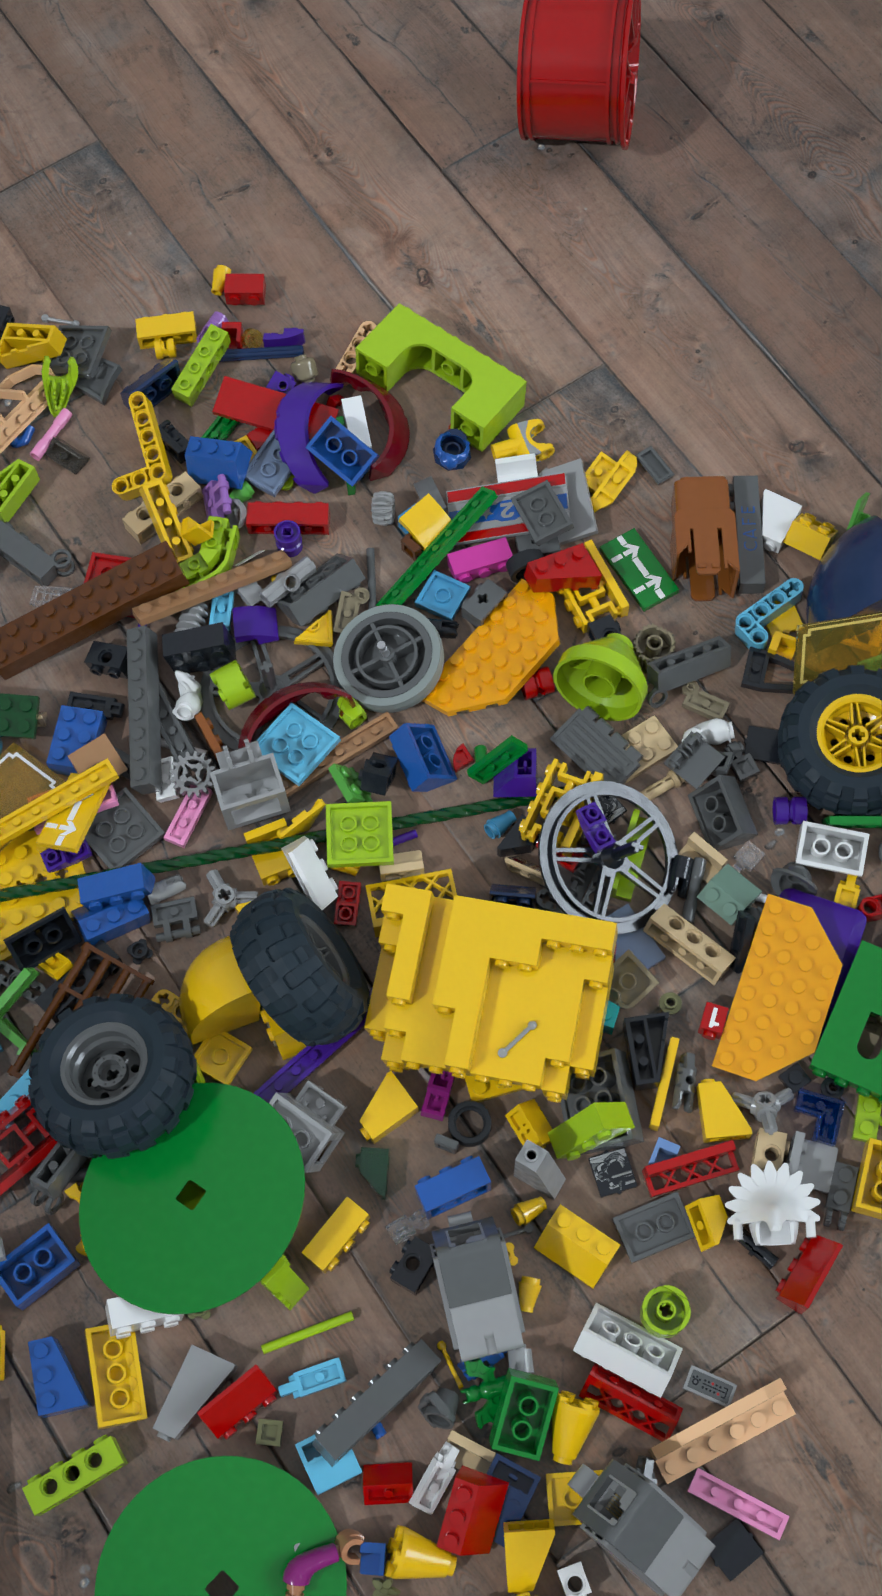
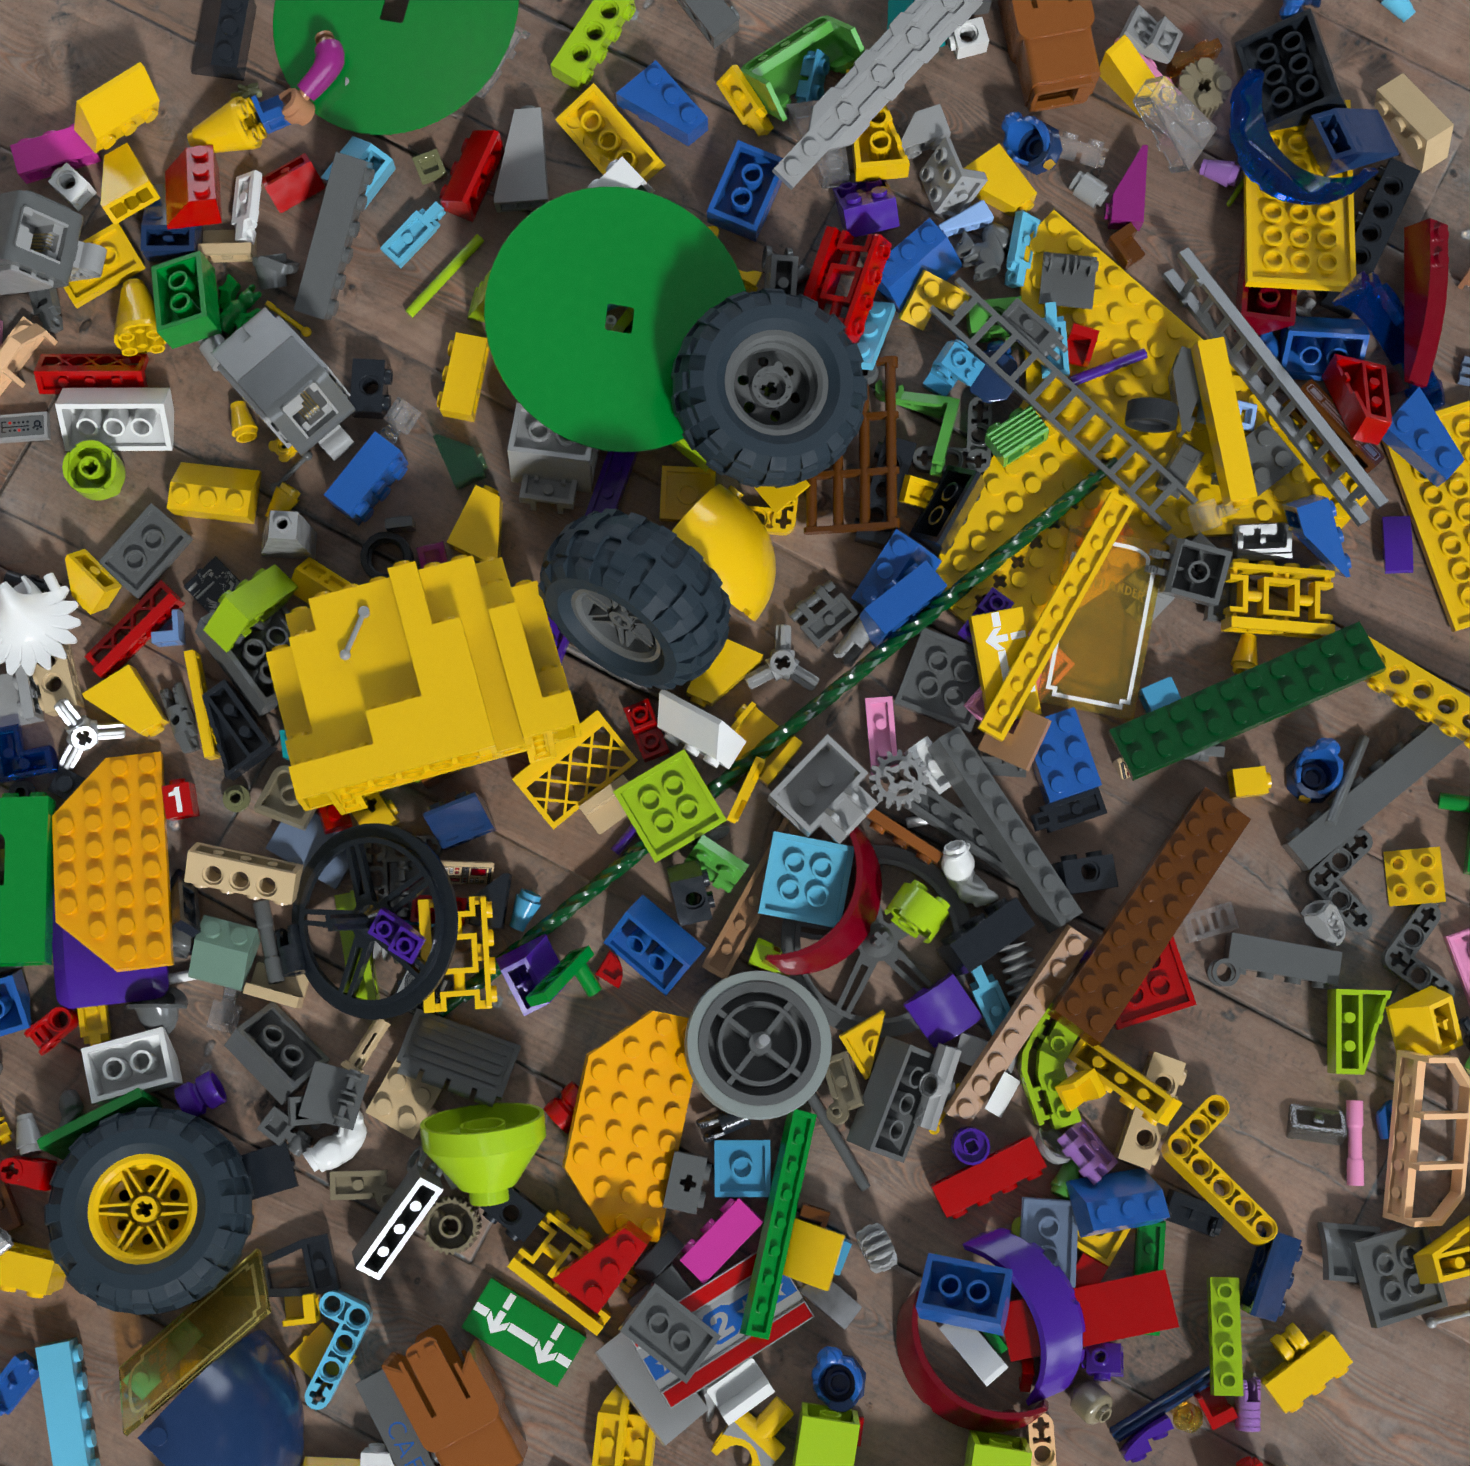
camera: 150 degrees right, 15 degrees up
(58, 387) = (1383, 1207): lime animal -> none
(135, 947) = (841, 552): black plate -> none

